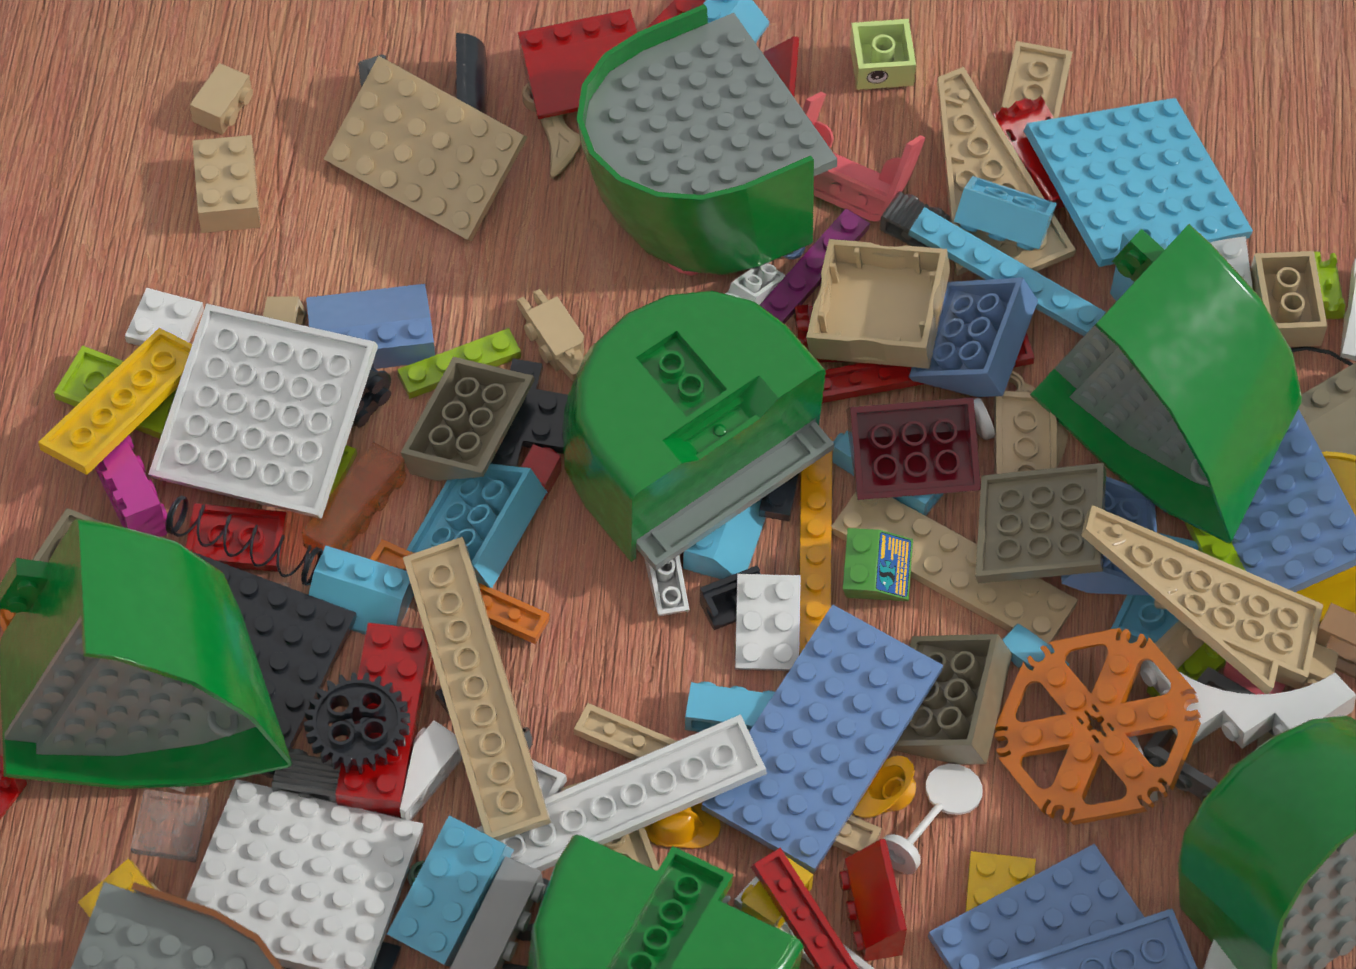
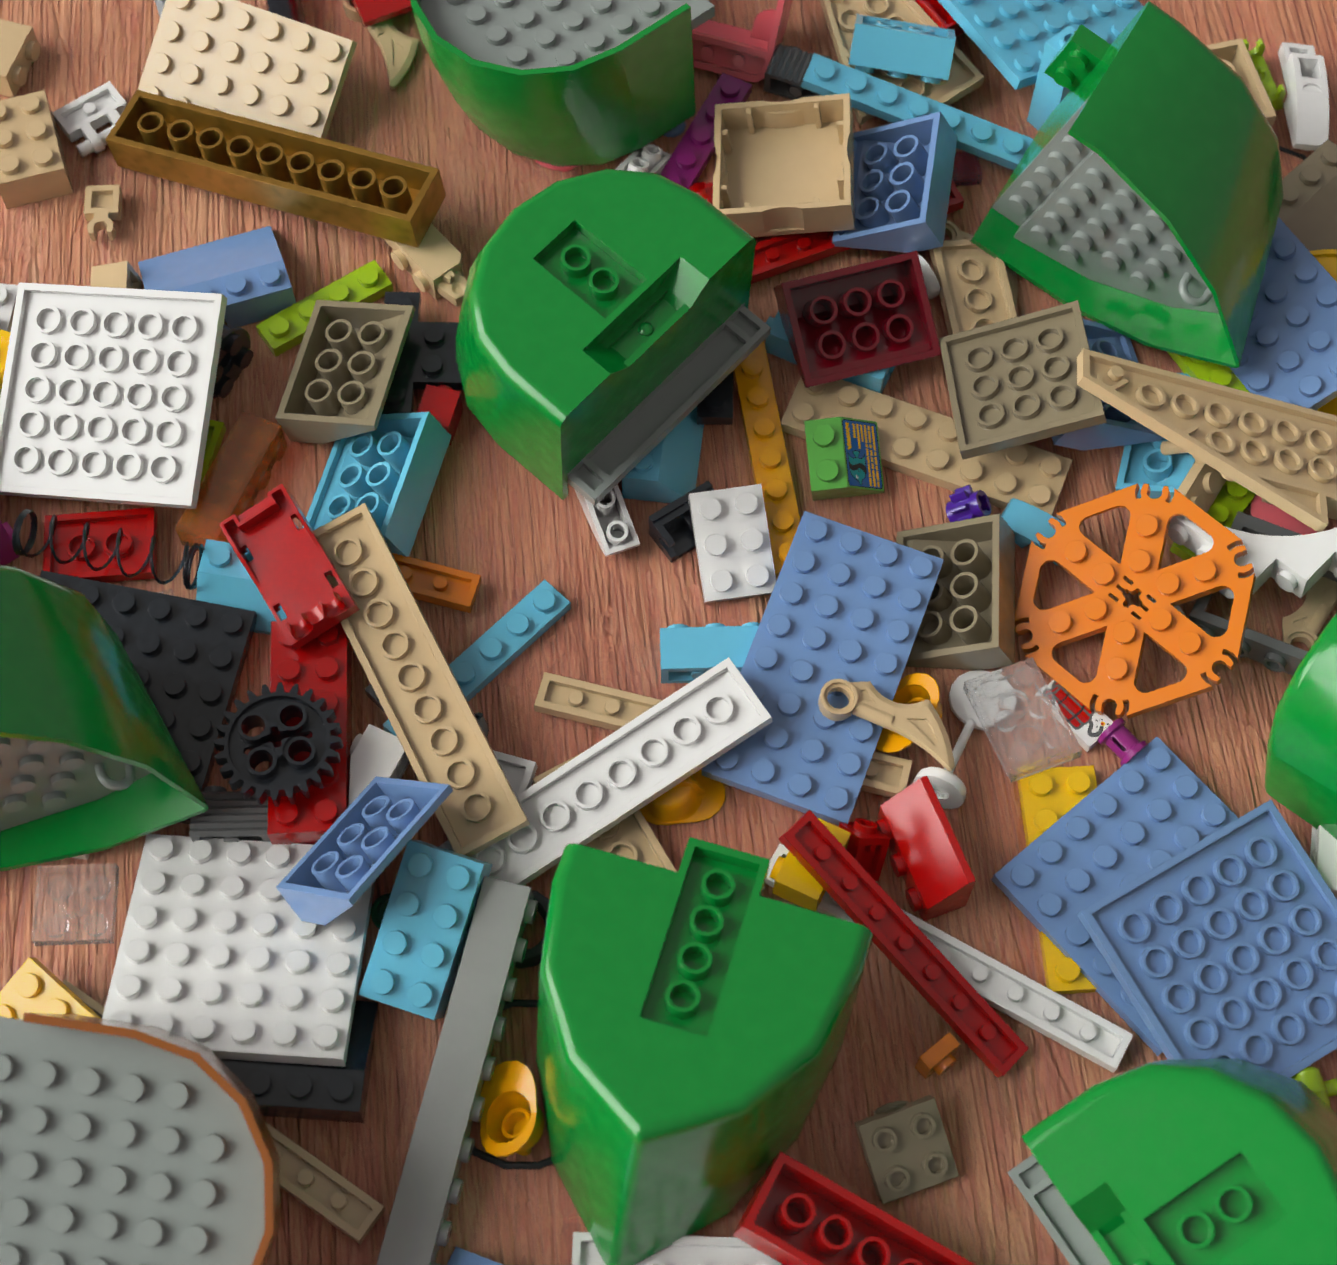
camera: 10 degrees left, 5 degrees up
(283, 245) = (102, 207): none -> tan plate
(287, 159) = (88, 114): none -> white plate
(391, 579) = (289, 567): none -> red piece
(407, 815) = (359, 847): none -> medium blue slope
(439, 236) = (277, 168): none -> pearl gold brick
(561, 671) = (506, 640): none -> medium azure plate
(827, 890) = (867, 845): none -> red bracket
(886, 794) = (914, 721): none -> tan piece
(976, 622) = (967, 504): none -> dark purple gear
(982, 810) = (1022, 719): none -> clear plate
(1031, 820) = (1084, 723): none -> tile
(1042, 329) = (966, 169): none -> clear pink tile
(1063, 841) = (1121, 741): none -> magenta bush

